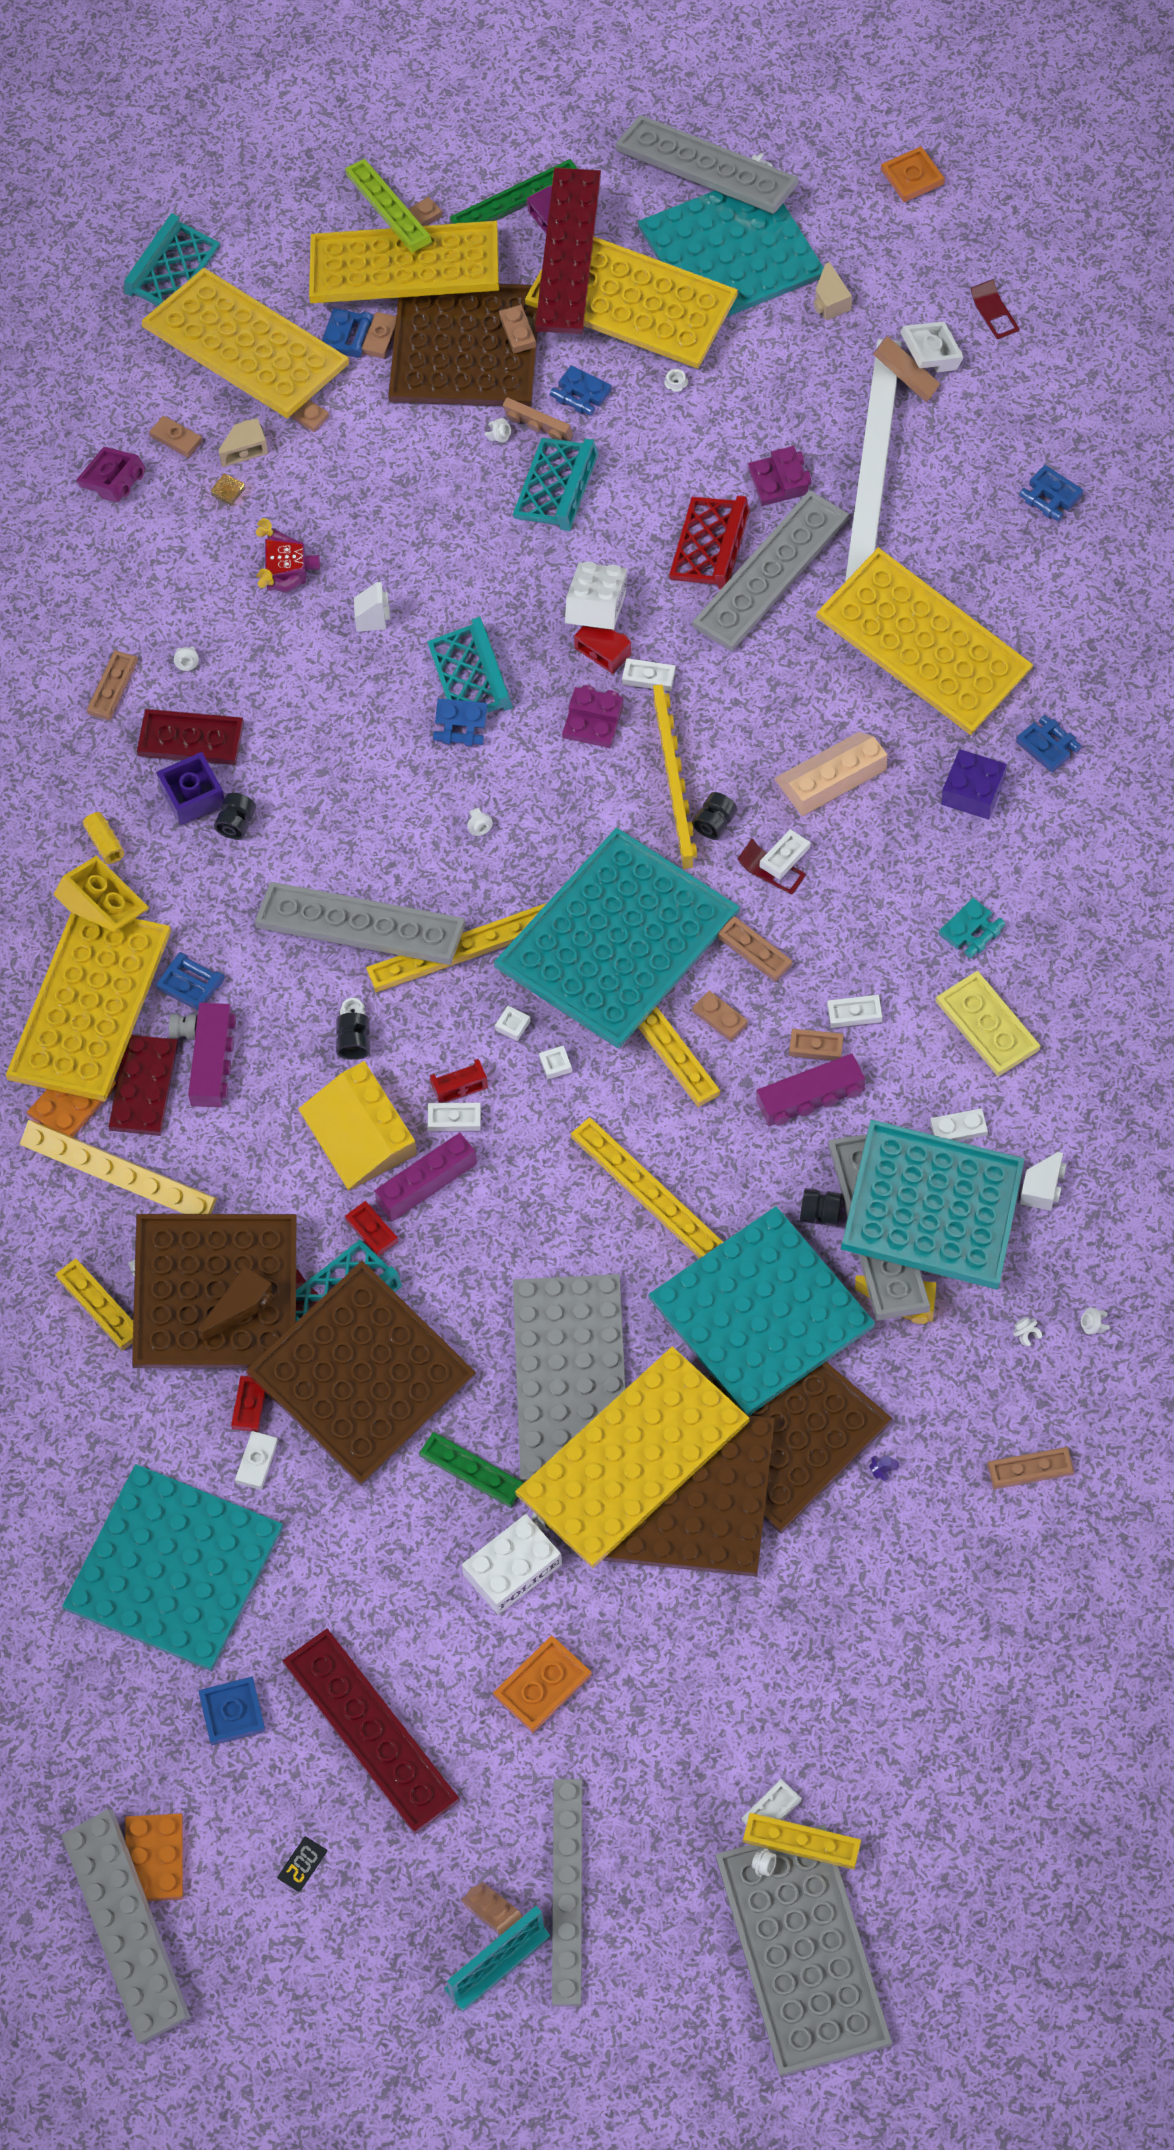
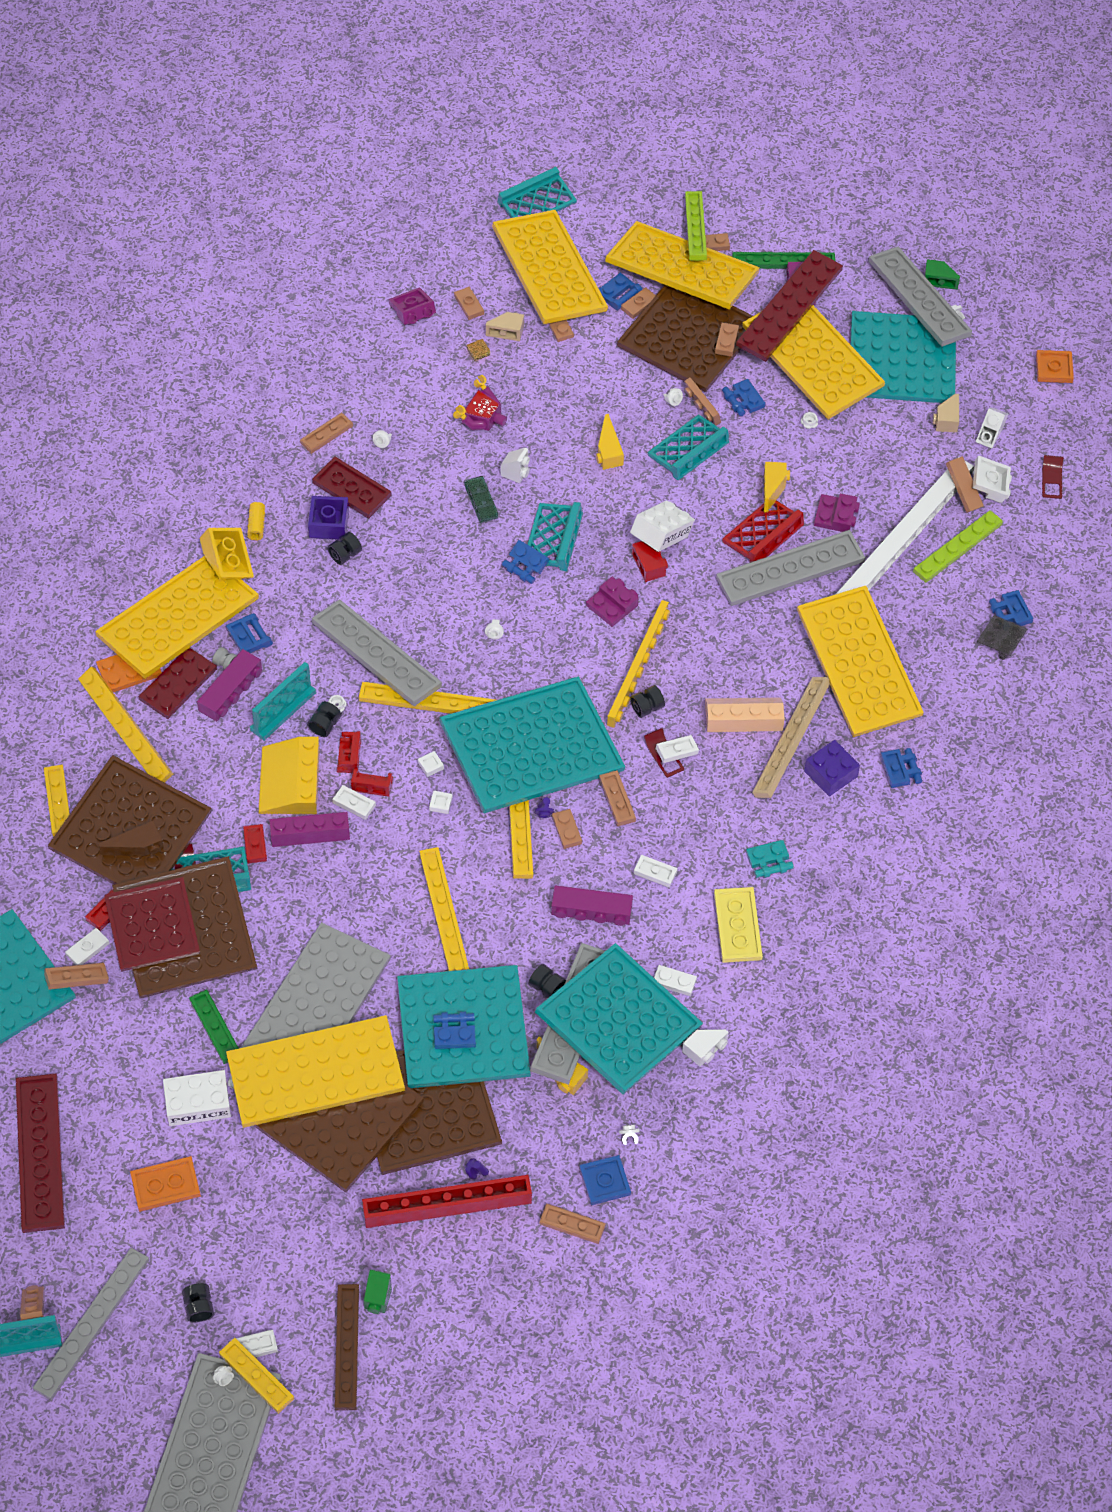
camera: 25 degrees right, 5 degrees down
(271, 1500) = (76, 975): none -> nougat plate
(292, 1044) = (282, 702): none -> teal fence
(325, 1390) = (152, 924): none -> dark red plate
(356, 672) = (481, 499): none -> clear green beam
(407, 1060) = (349, 752): none -> red hinge
(467, 533) = (609, 449): none -> yellow slope
(647, 674) = (664, 591): white plate -> none
(679, 1005) = (543, 808): none -> dark purple plate
(683, 472) = (774, 482): none -> yellow slope
(683, 1804) = (198, 1302): none -> black wheel
(713, 125) = (941, 275): none -> green slope
(764, 1328) = (454, 1036): none -> blue plate
(816, 1044) = (615, 878): nougat plate -> none
(872, 1669) = (377, 1292): none -> green slope
(876, 1750) = (347, 1347): none -> reddish brown plate
(878, 1522) = (447, 1201): none -> red brick
(890, 284) = (992, 427): none -> white slope
(904, 772) = (791, 737): none -> tan plate
(941, 447) = (957, 546): none -> lime plate
(1034, 1398) = (605, 1180): none -> blue plate
(1062, 528) = (1002, 636): none -> clear smoke hinge
(1092, 1323) = (676, 1150): white plate -> none

